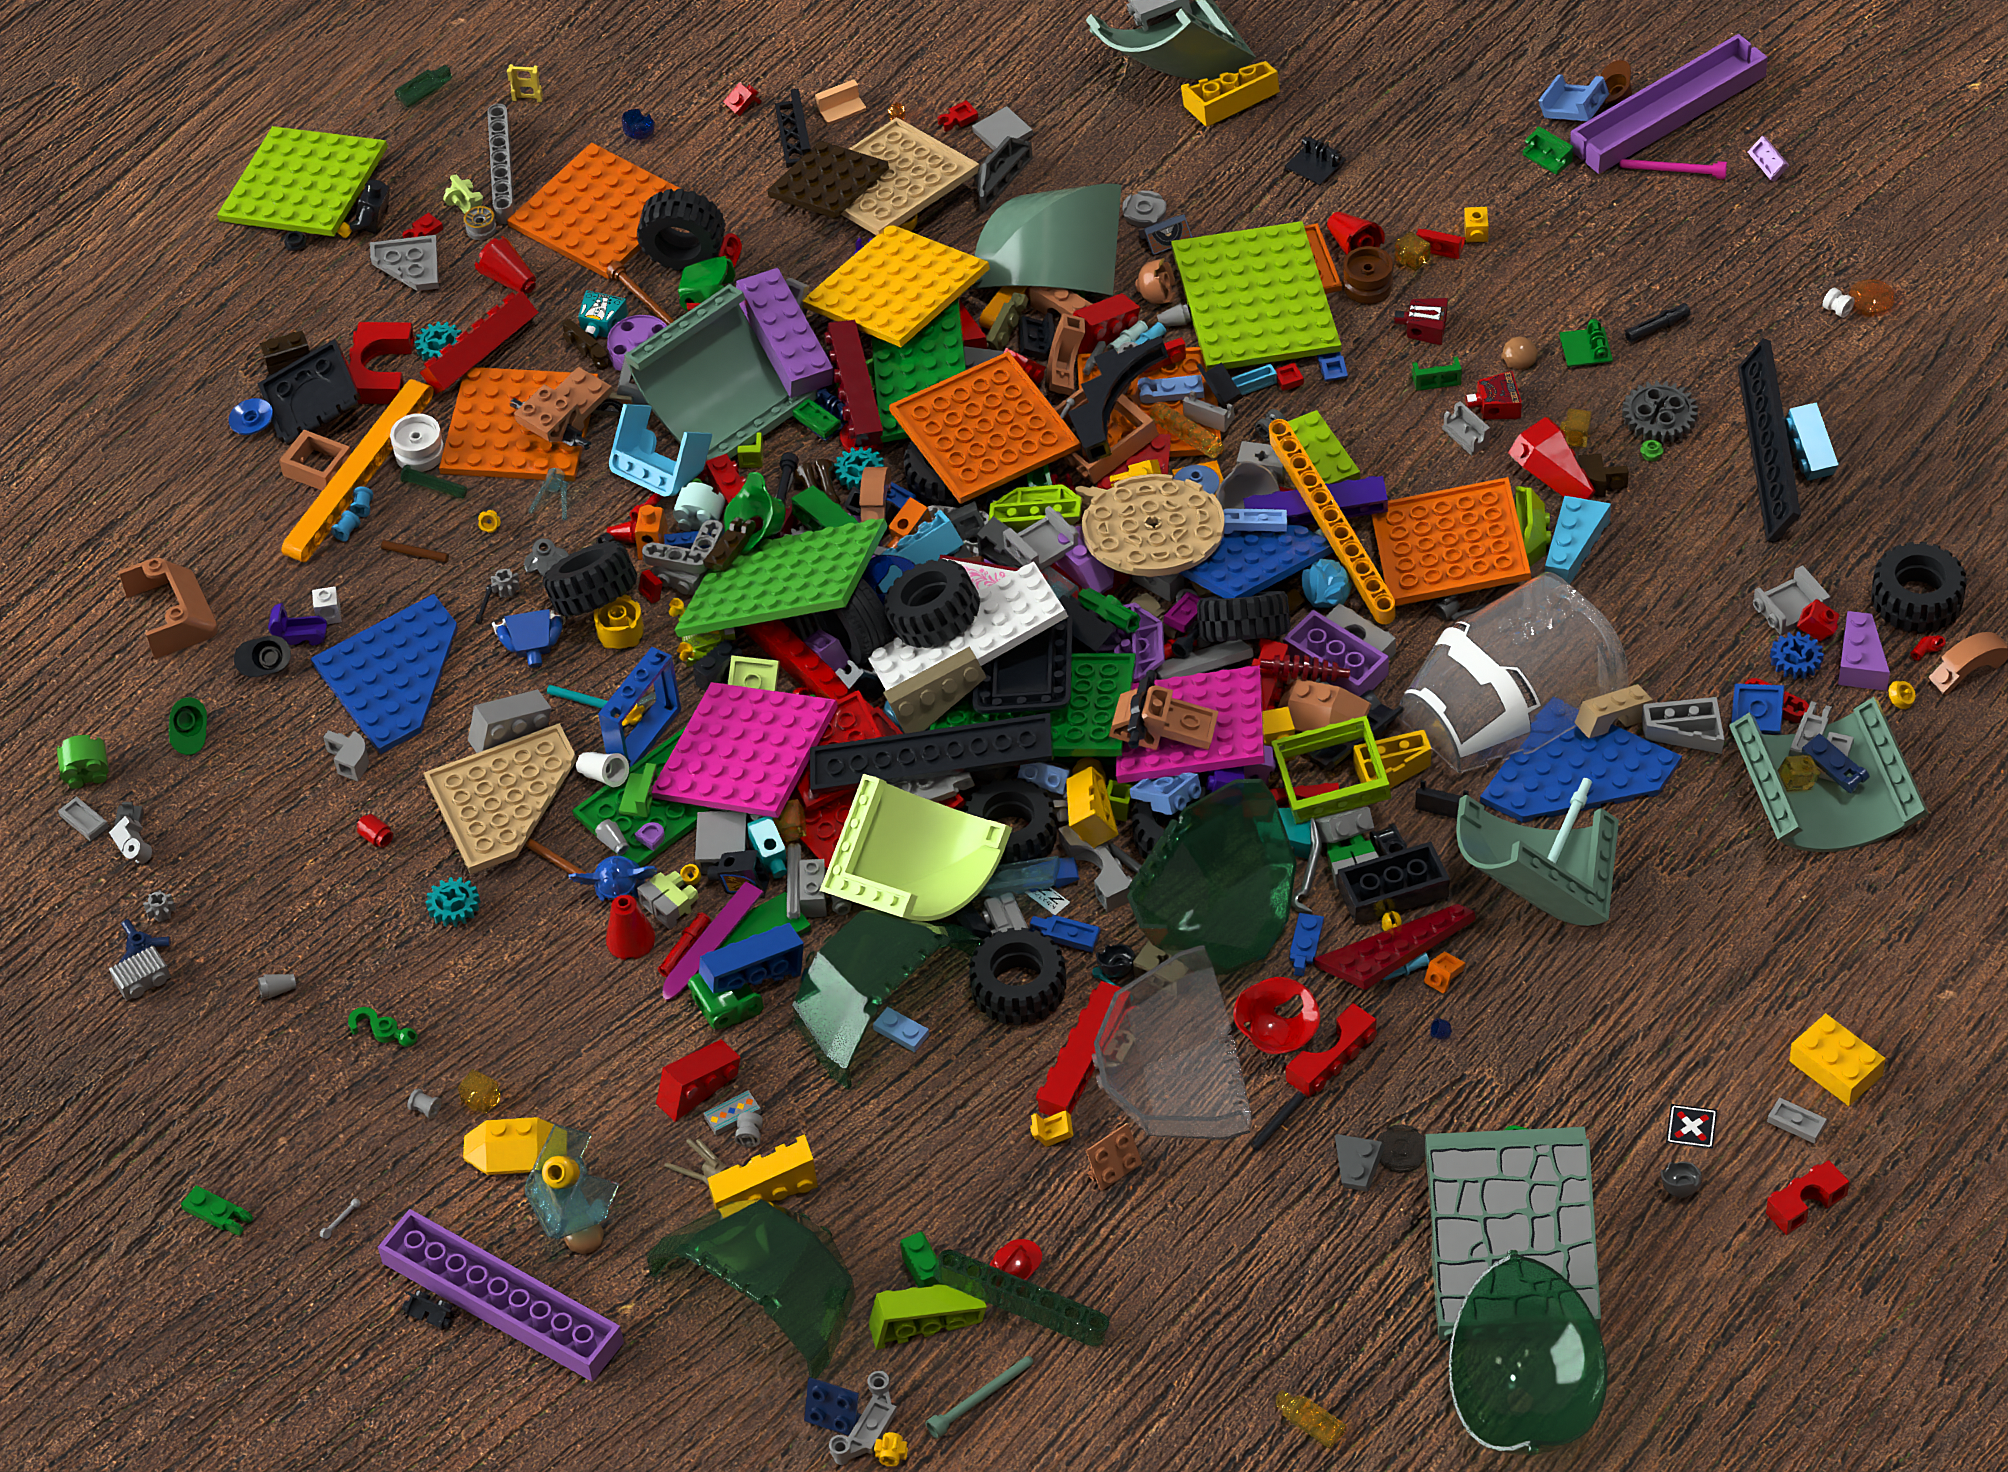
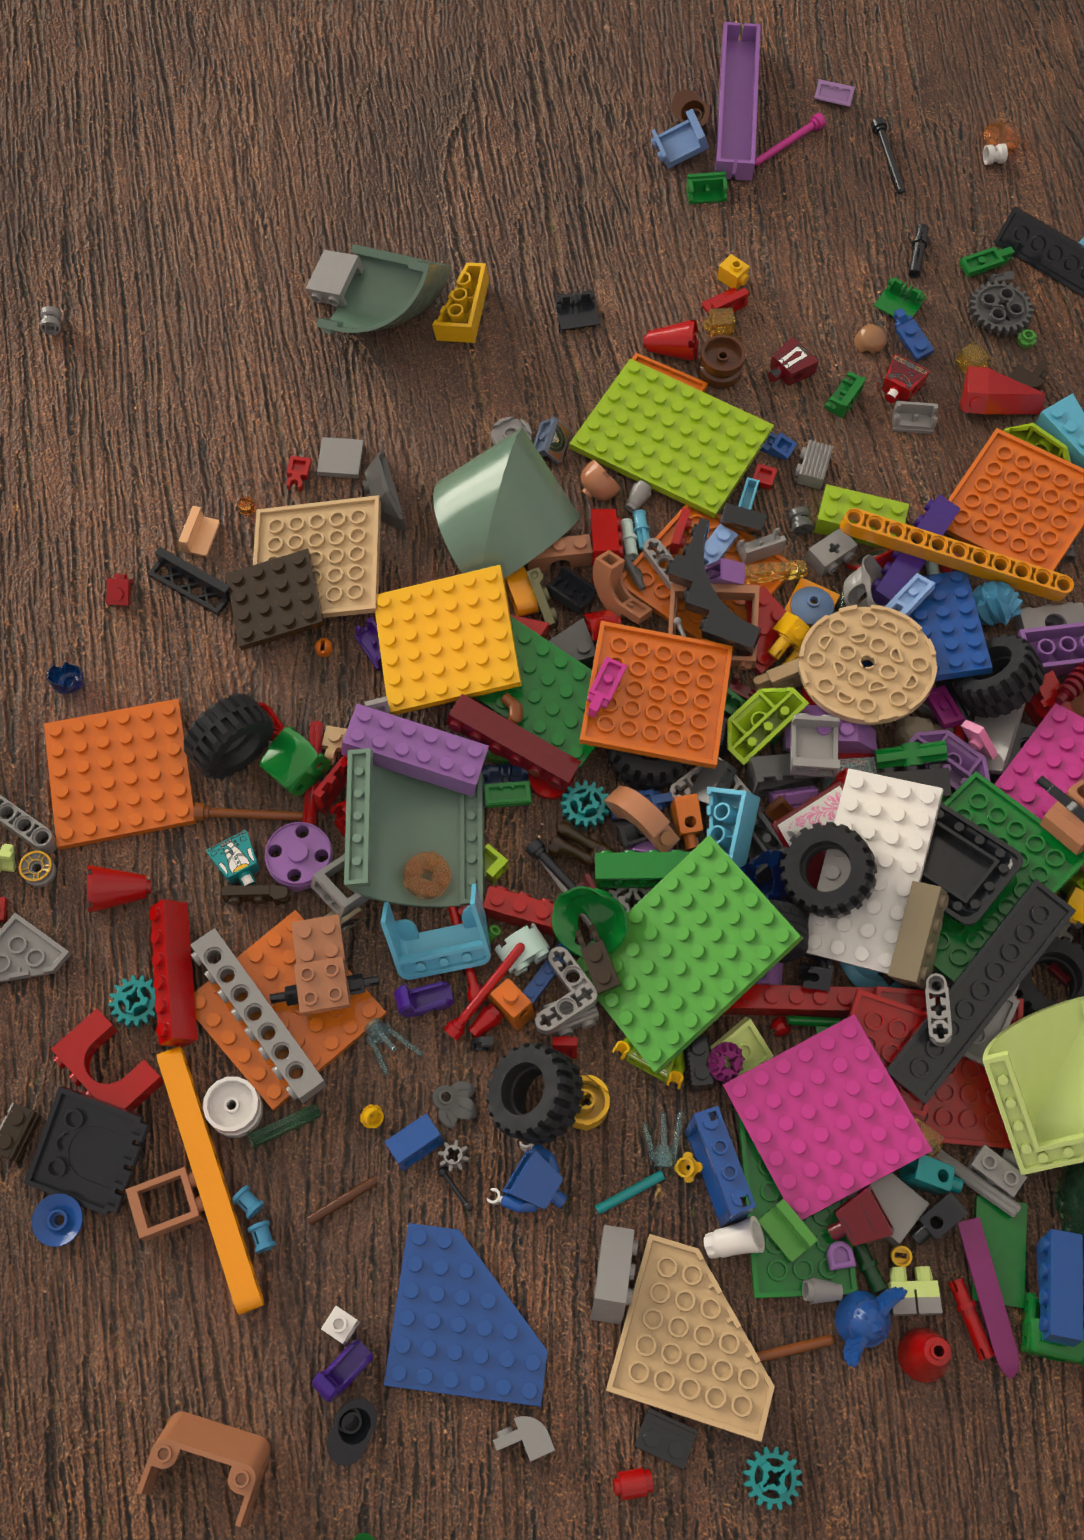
camera: 55 degrees left, 15 degrees up
(424, 832) = (666, 1438): none -> black plate
(492, 555) = (414, 1142): none -> blue hinge
(493, 404) = (213, 945): none -> light grey brick
(601, 485) = (423, 999): none -> dark purple animal
(601, 519) = (456, 1027): none -> red piece
(665, 860) = (869, 1268): none -> dark green pin
(689, 819) = (861, 1219): none -> dark red torso
(699, 407) = (422, 887): none -> clear orange plate
(738, 662) = (716, 1061): none -> magenta gear
(826, 239) = (328, 647): none -> orange hinge
(871, 742) = (935, 1021): none -> light grey beam
(880, 363) = (515, 708): none -> dark orange arm
(948, 385) = (605, 685): none -> dark pink hinge
(1144, 396) = (726, 572): none -> medium lavender slope
(1170, 642) = (979, 739): none -> bright pink plate
(1338, 398) = (814, 465): none -> light grey brick
(1555, 375) = (912, 336): none -> blue hinge
(1698, 392) = (1007, 276): none -> dark grey tile
(1704, 371) = (985, 260): none -> green hinge
(1769, 212) = (879, 128): none -> black piece

